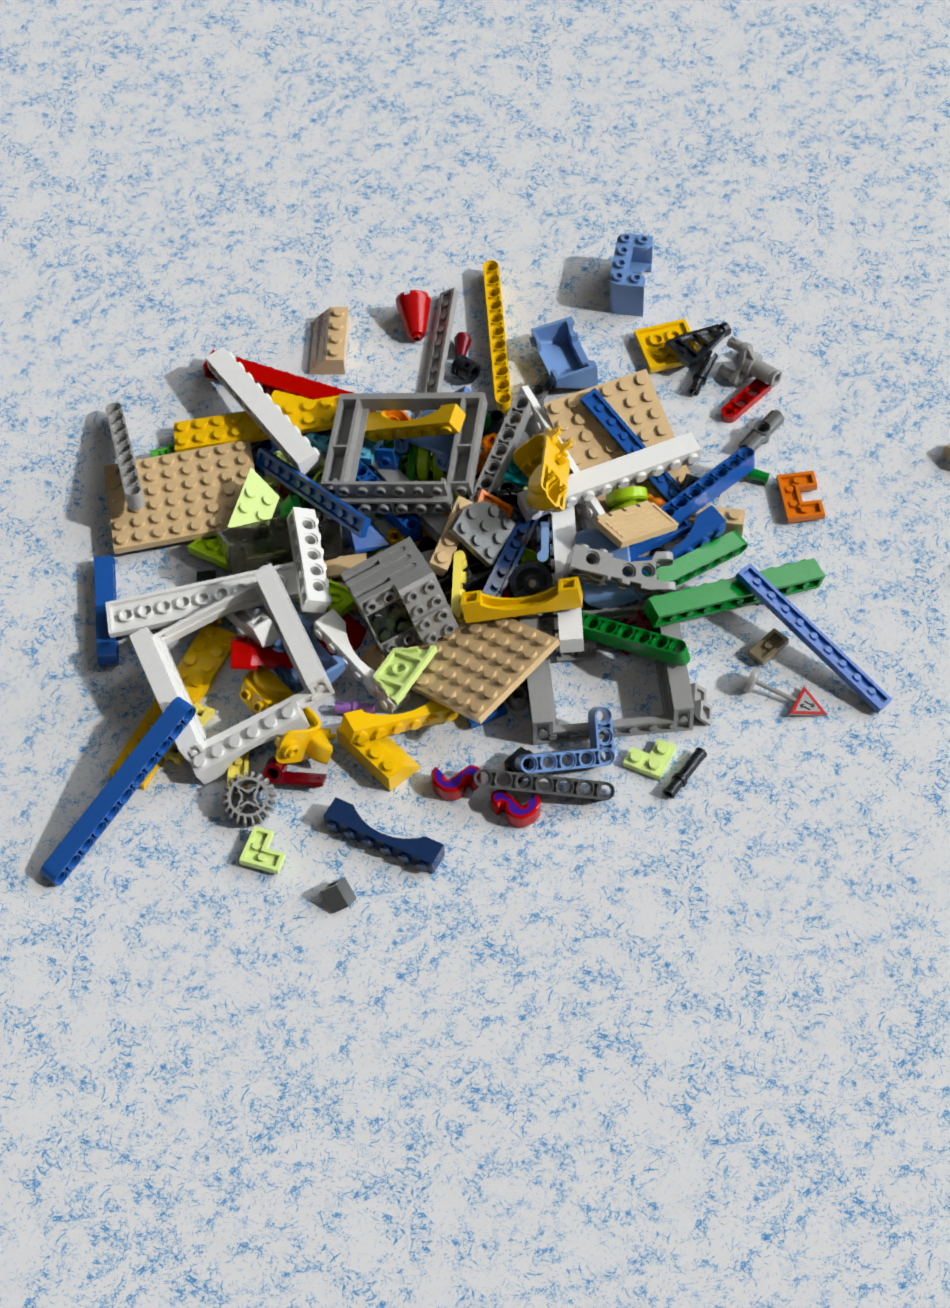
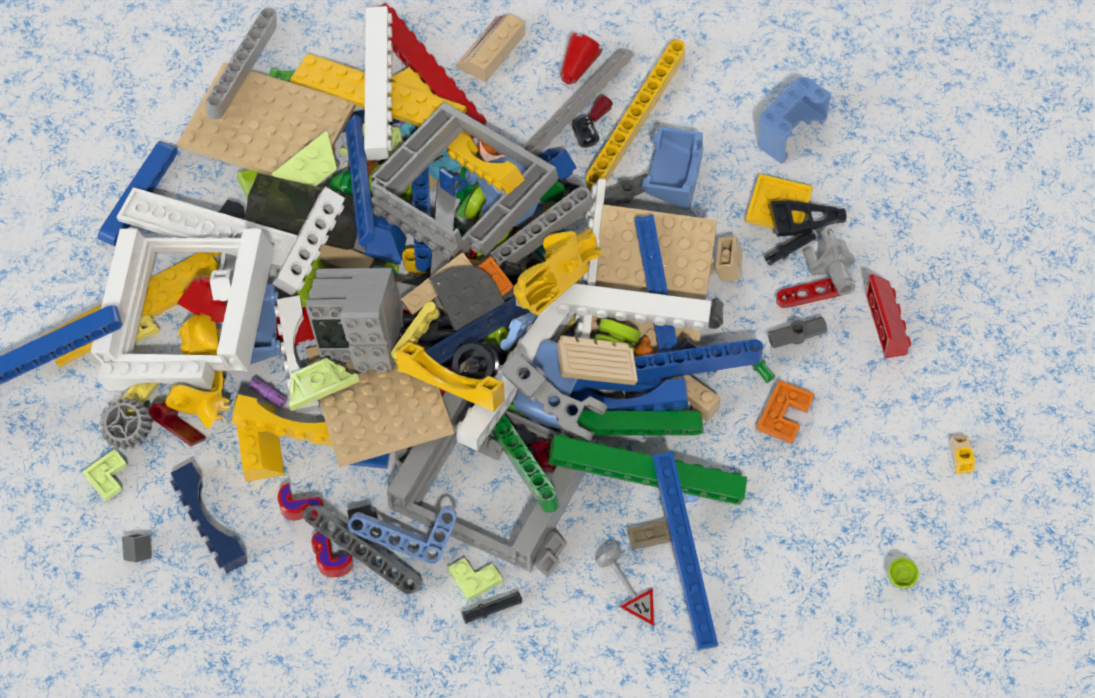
camera: 30 degrees right, 5 degrees up
(669, 406) = (729, 258): none -> tan brick
(822, 386) = (887, 317): none -> red slope

